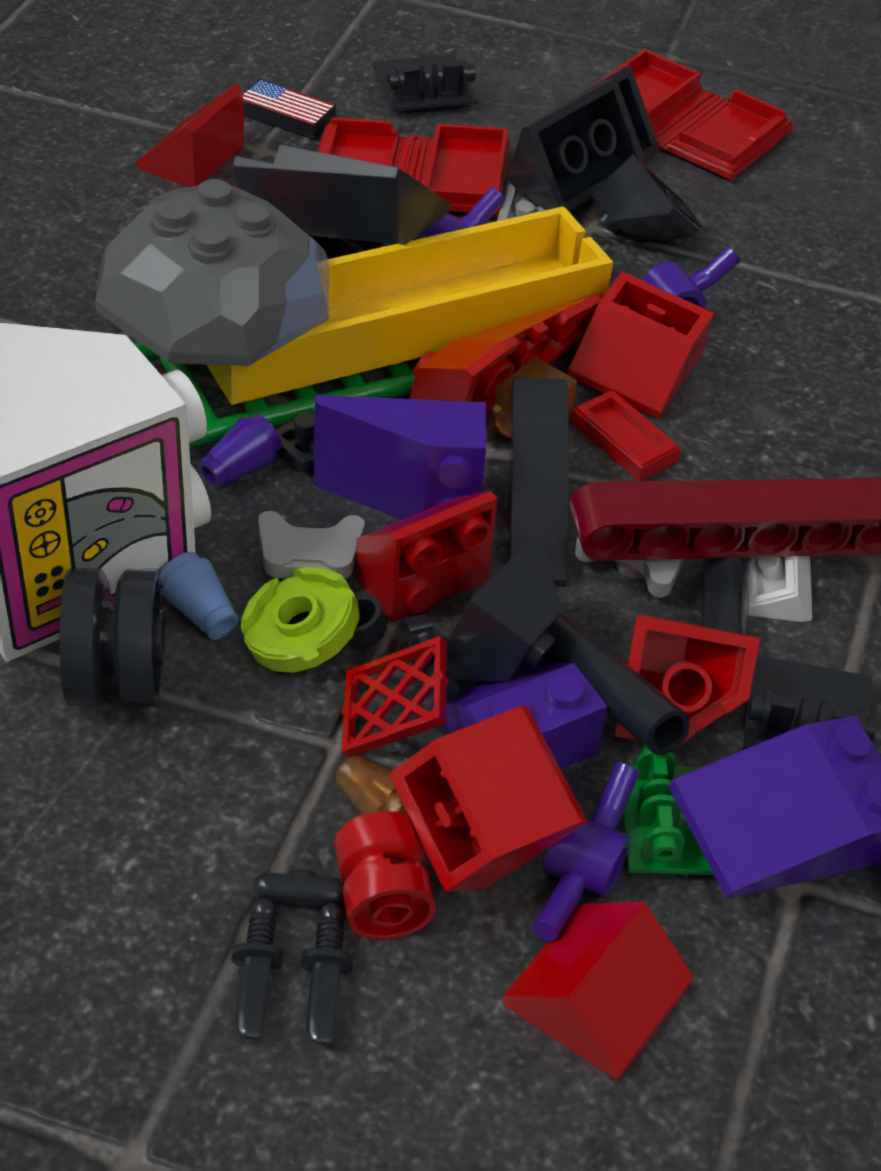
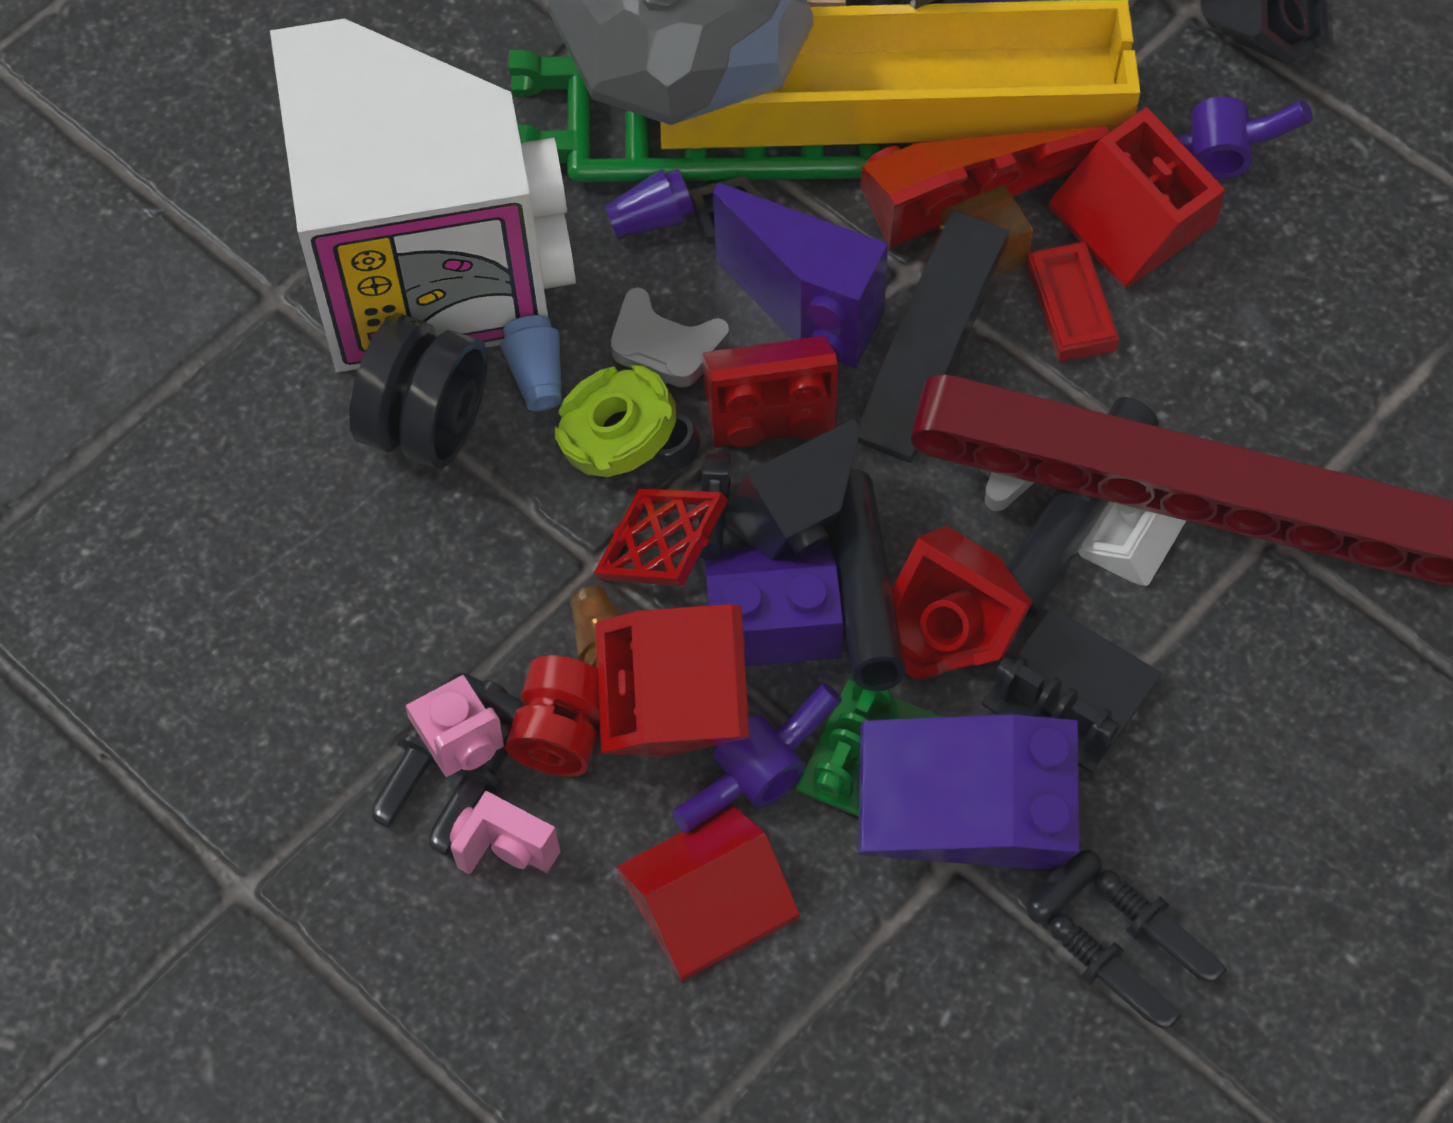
camera: 30 degrees right, 15 degrees up
(292, 916) = (456, 726): none -> bright pink bracket
(389, 995) = (512, 832): none -> bright pink bracket

